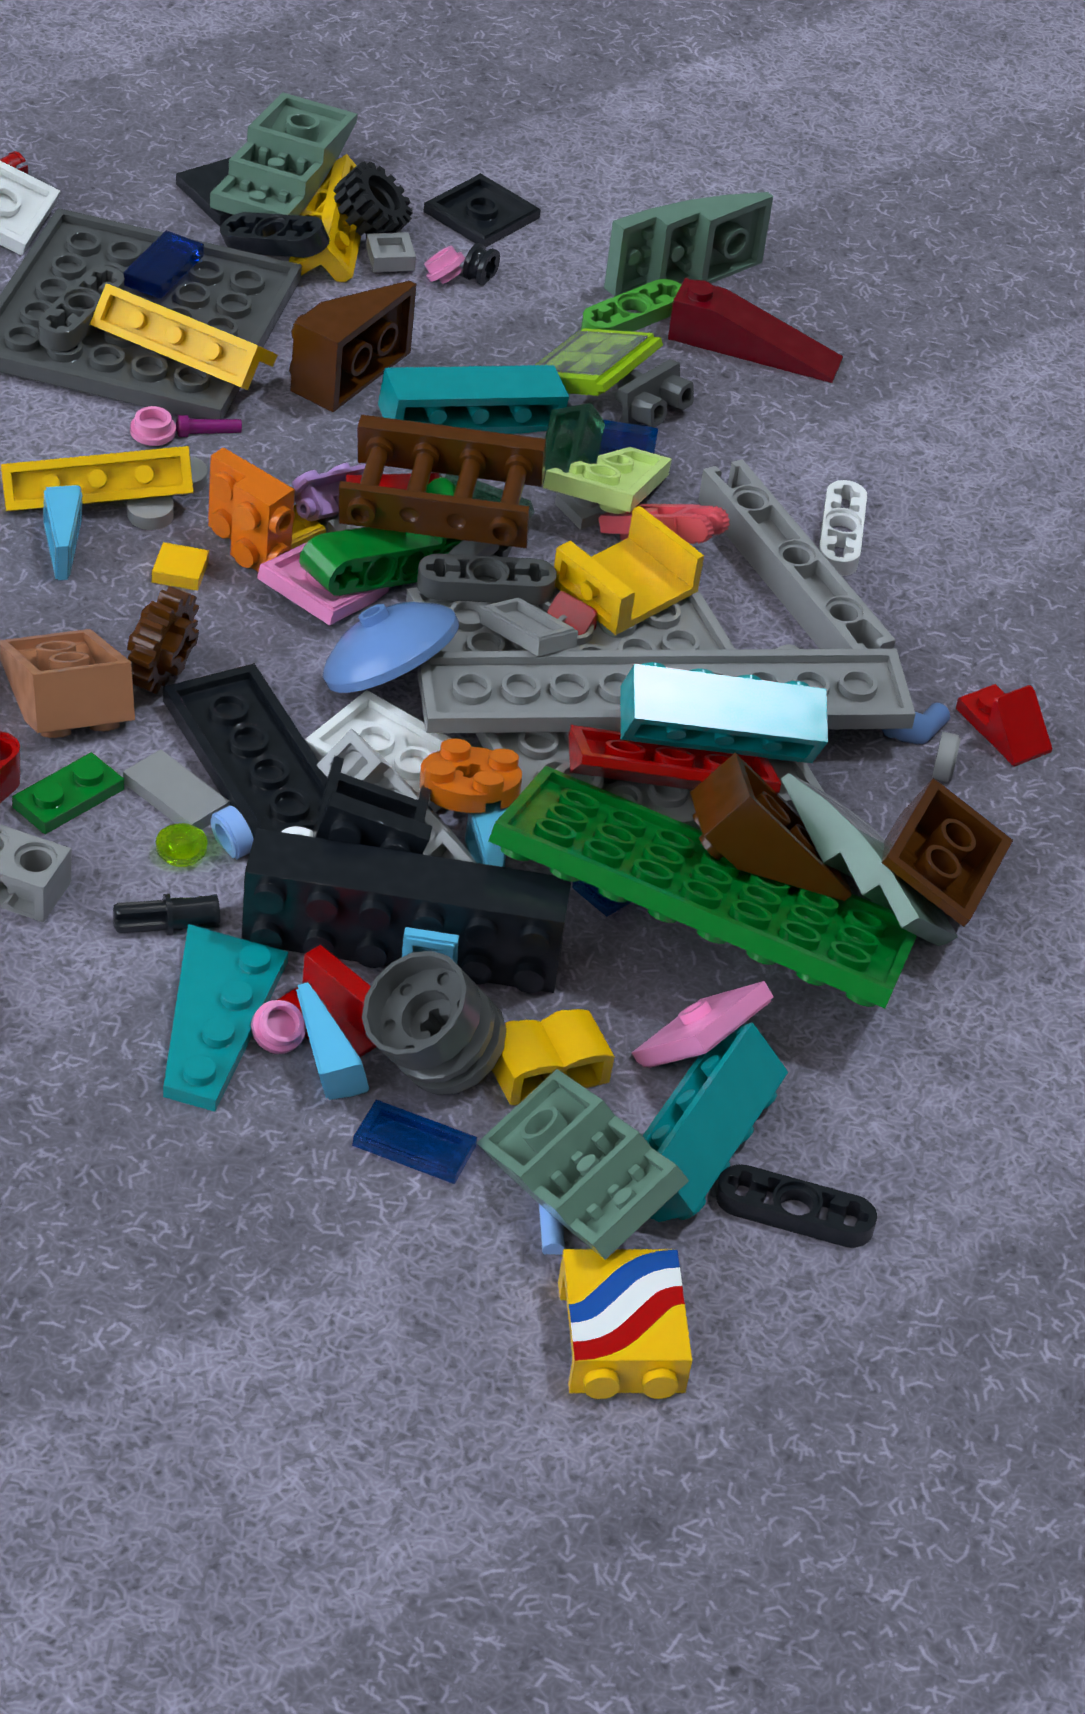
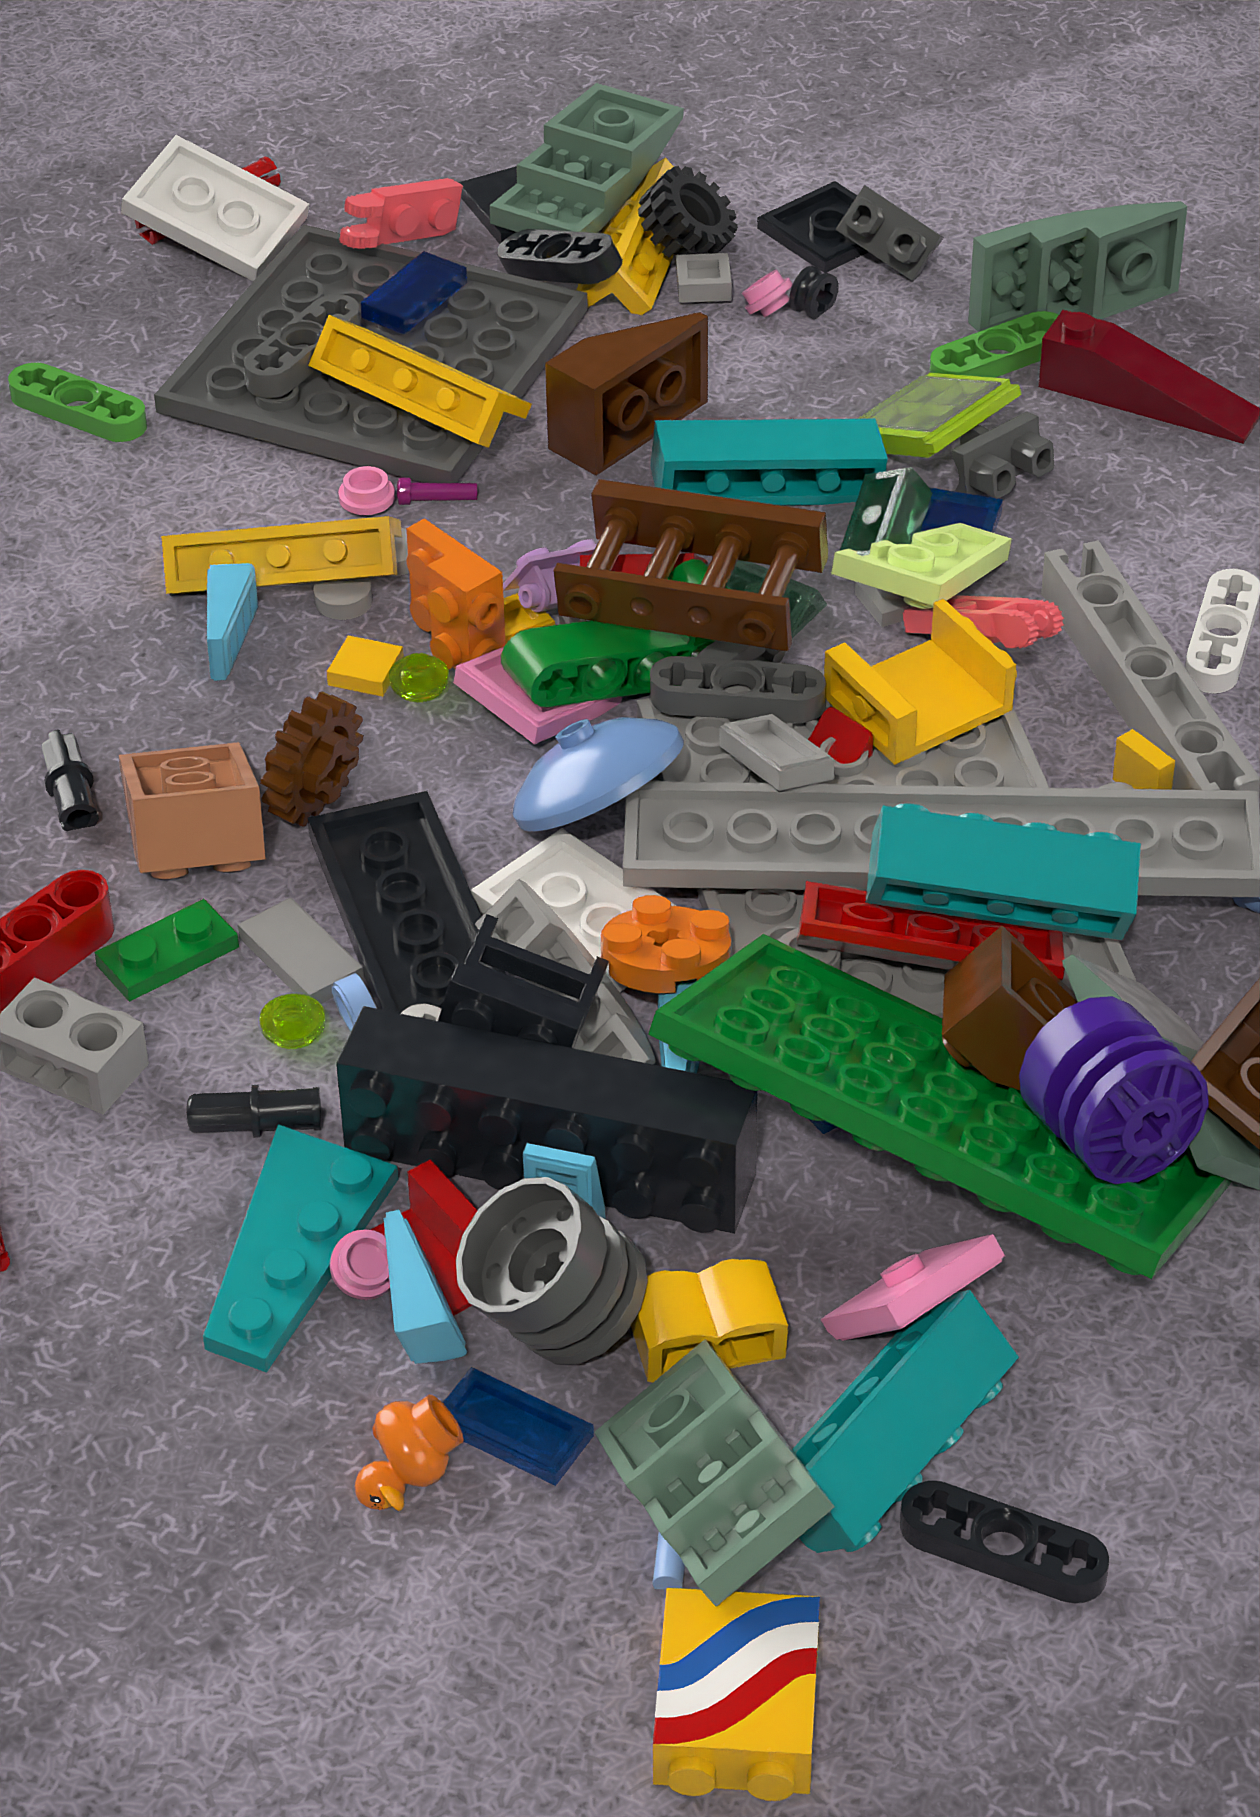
camera: 15 degrees right, 0 degrees up
(141, 199) = (402, 213): none -> coral hinge
(226, 574) = (418, 677): none -> clear neon green plate
(348, 1156) = (417, 1448): none -> orange animal
(534, 216) = (889, 233): none -> dark grey hips
(802, 629) = (1142, 763): none -> yellow tile
(840, 870) = (1113, 1089): none -> dark purple wheel

